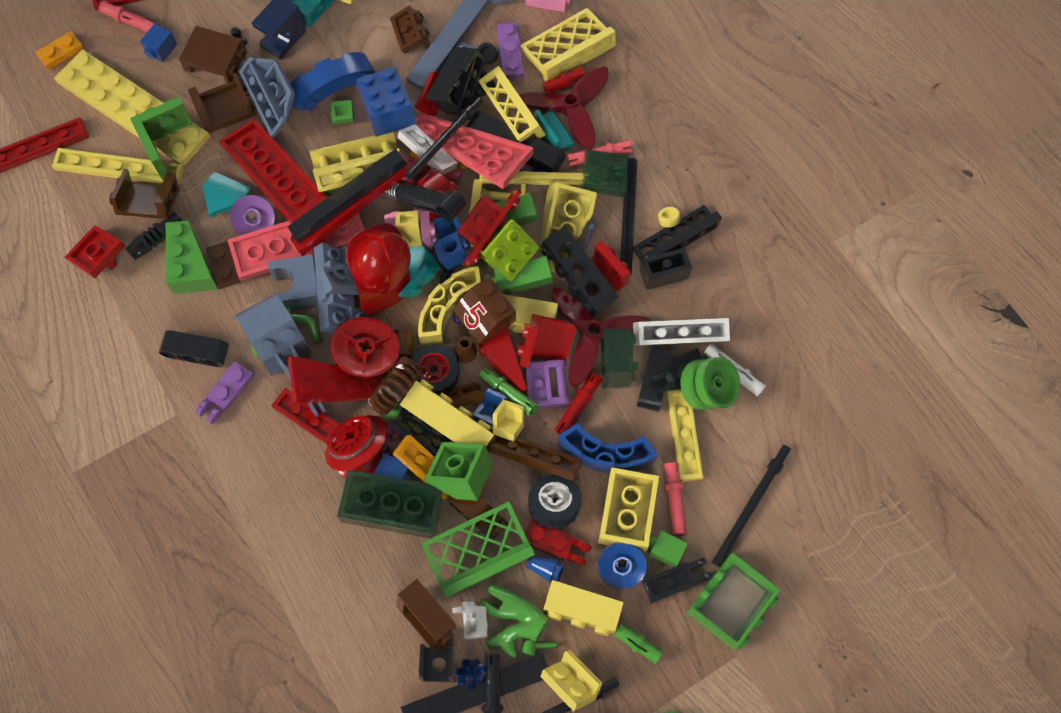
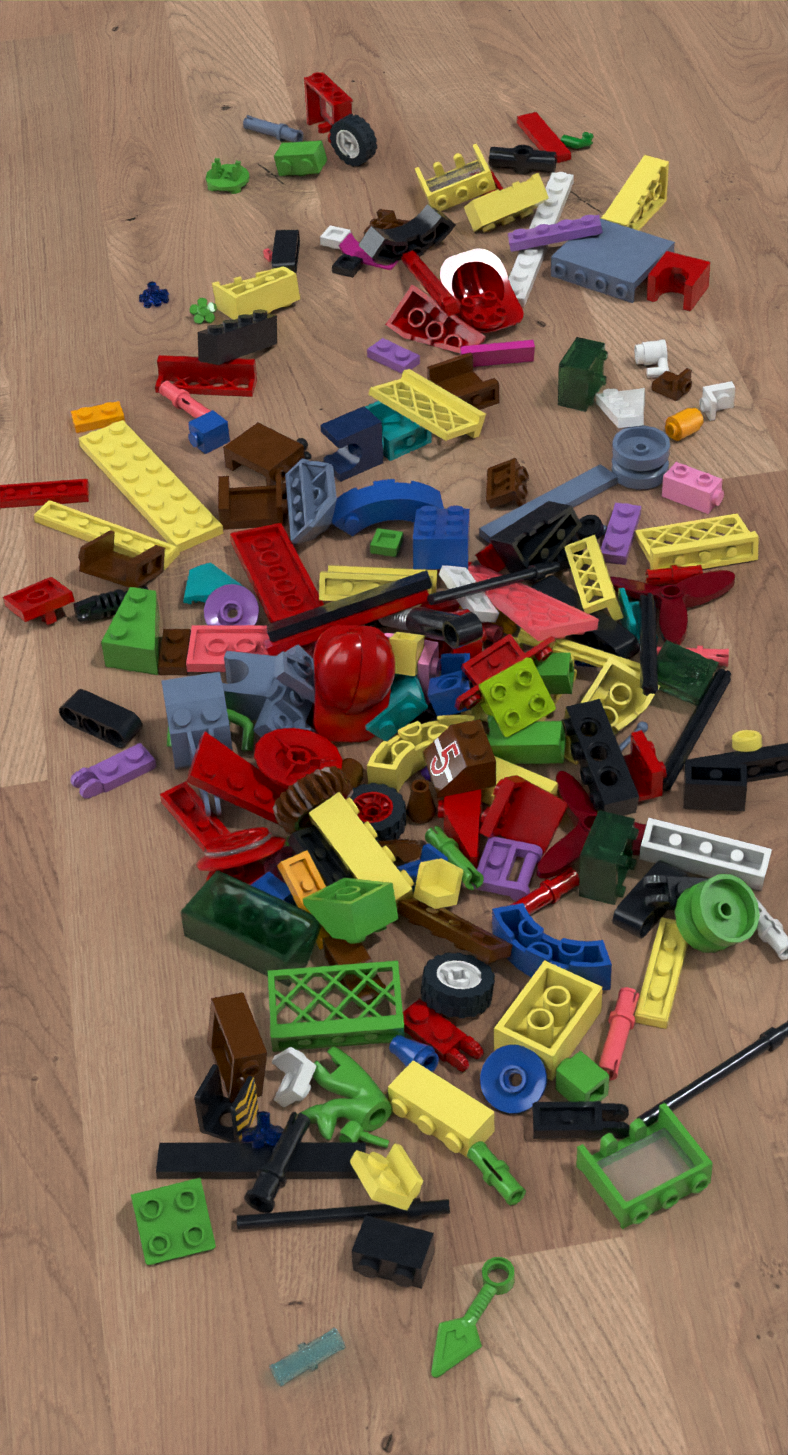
camera: 25 degrees right, 25 degrees down
(157, 123) = (161, 500): bright green bracket -> none
(575, 158) = (648, 644): none -> black axle

